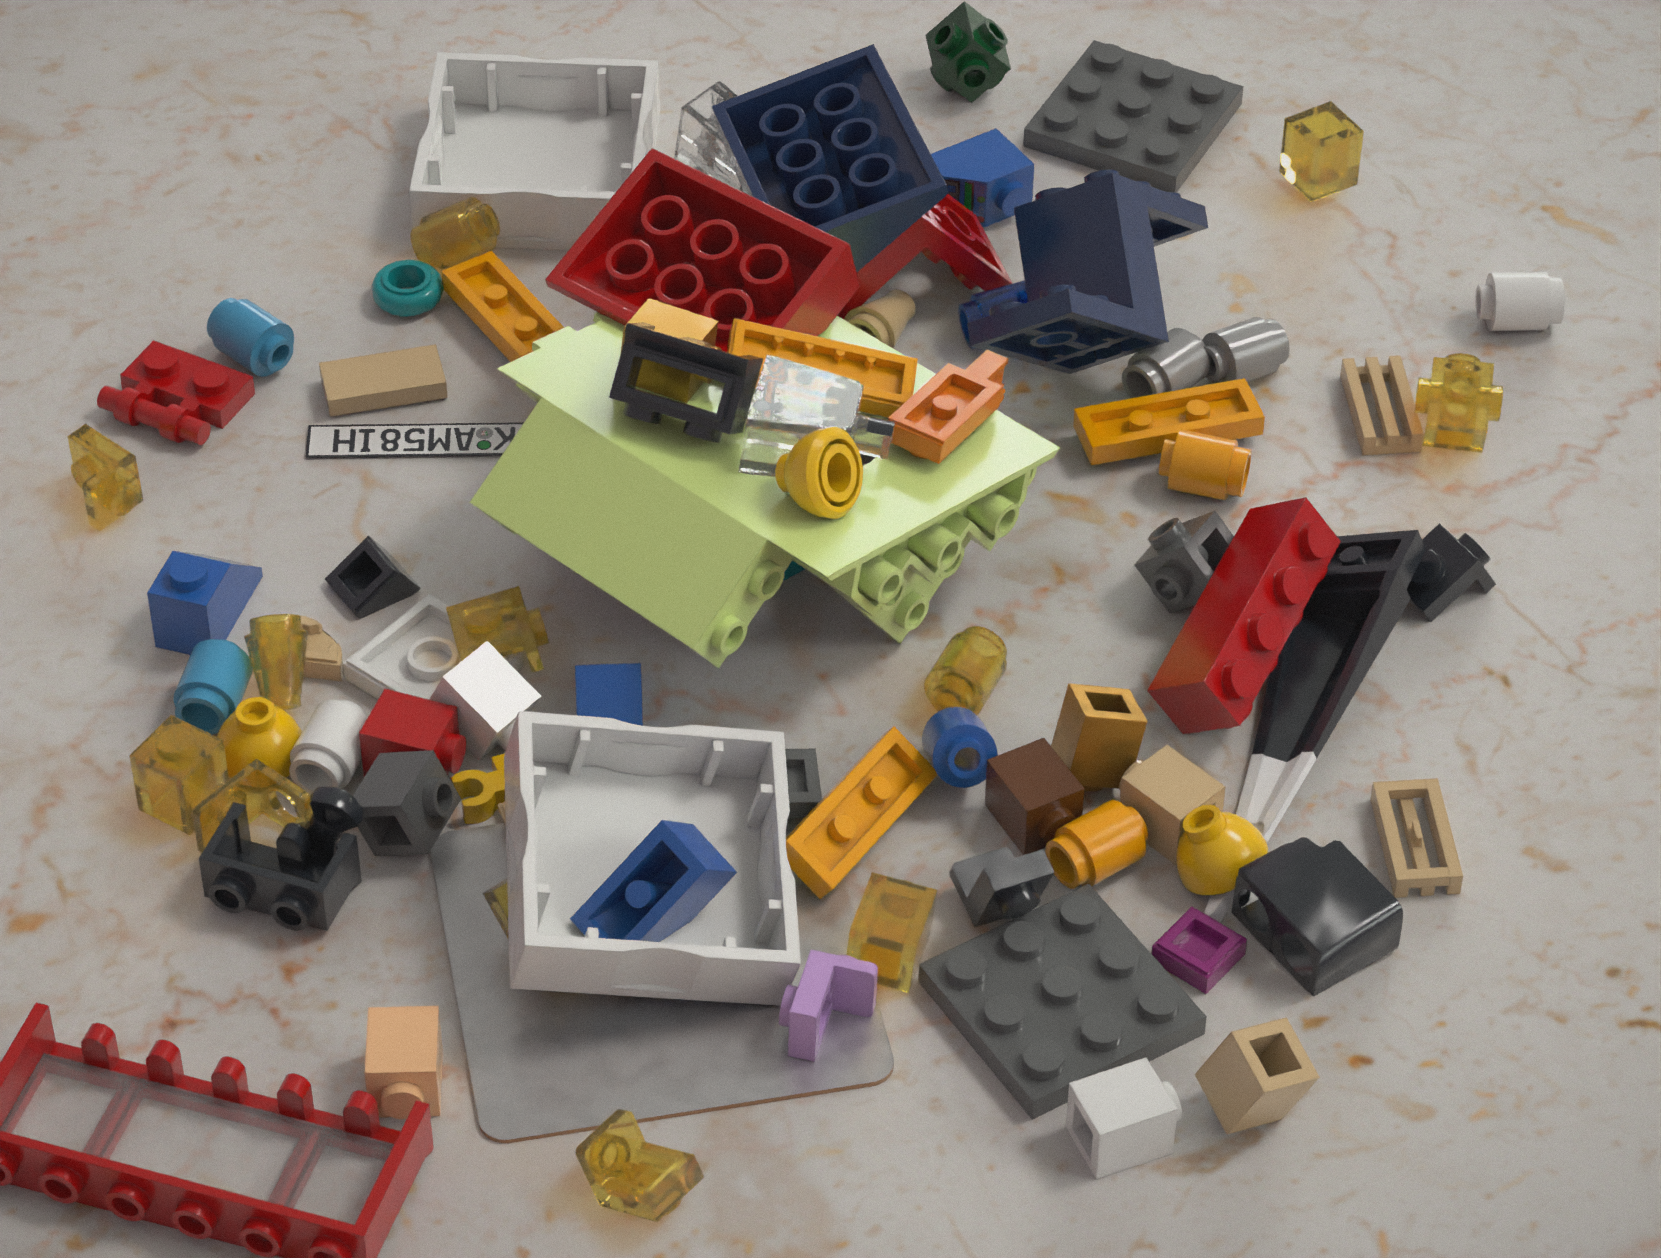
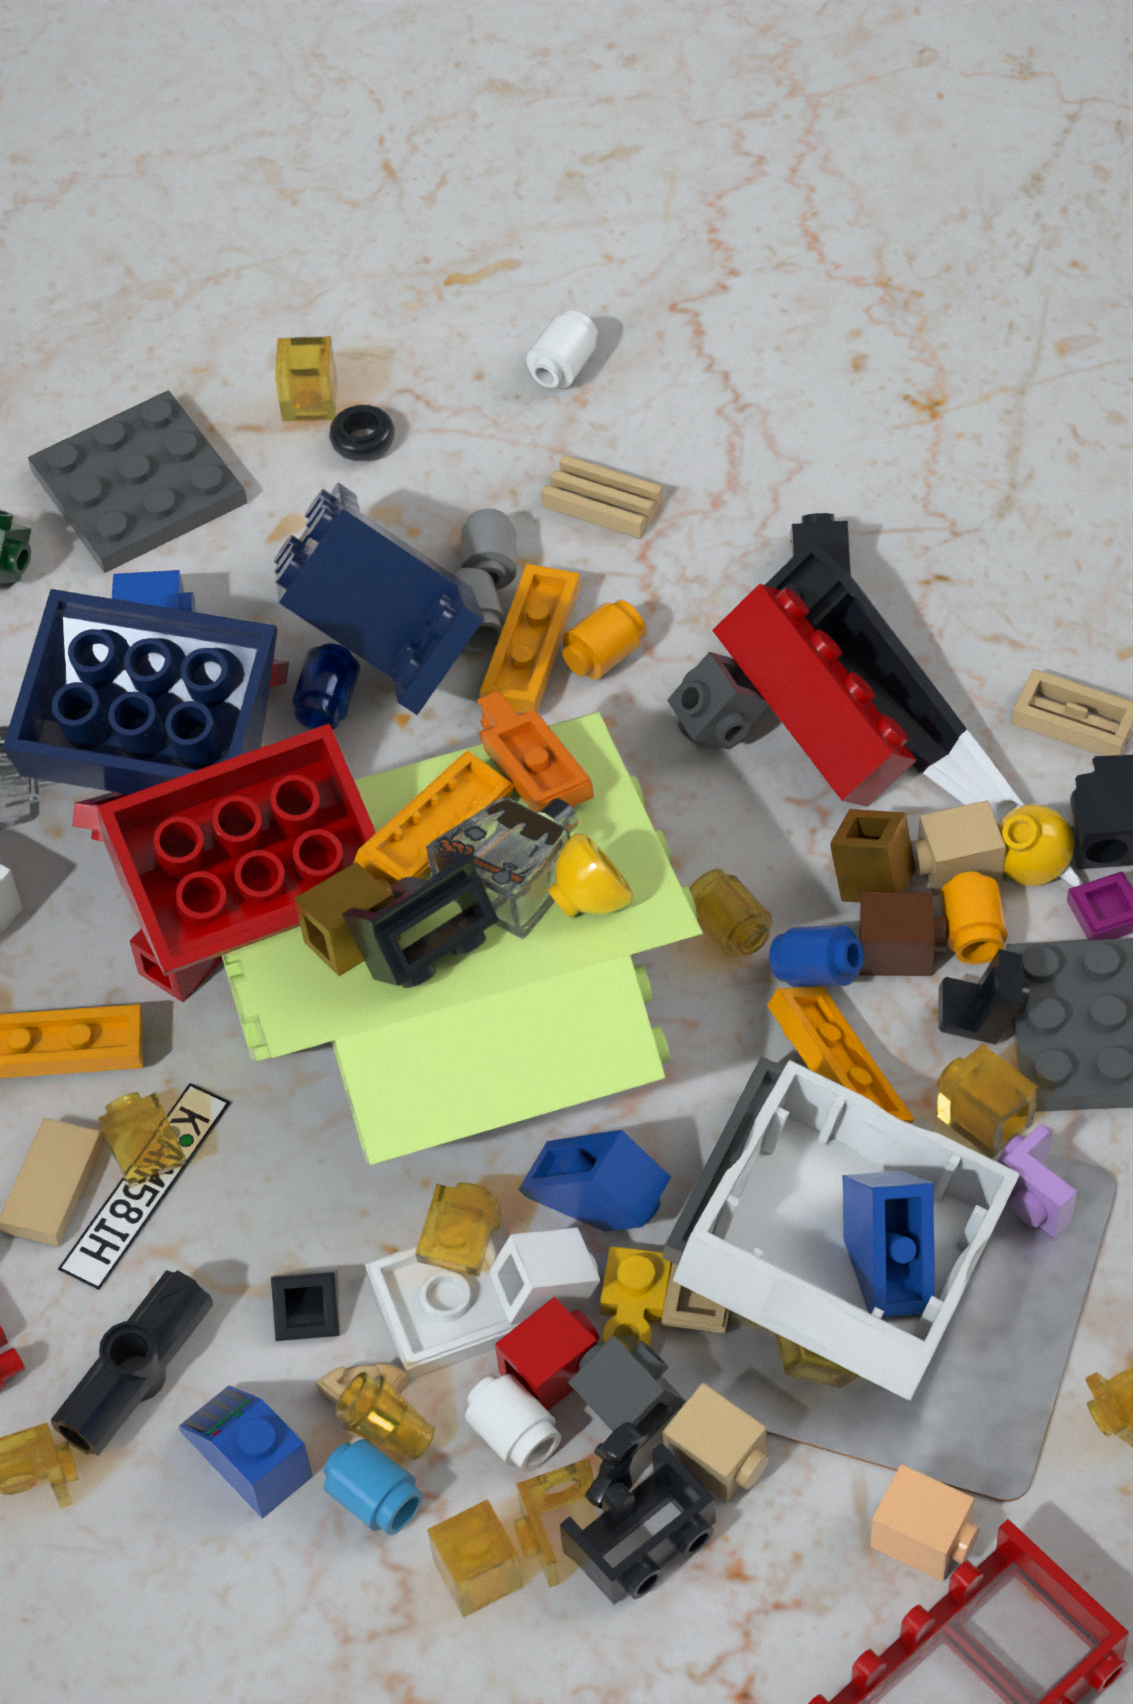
camera: 55 degrees left, 10 degrees up
(236, 492) = (111, 1391): none -> black piece
(259, 732) = (457, 1477): yellow brick -> none
(394, 885) = (717, 1442): none -> tan brick
(451, 403) = (140, 1138): none -> clear yellow bracket
(1294, 226) = (364, 447): none -> black piece
(1458, 402) = (657, 443): clear yellow brick -> none

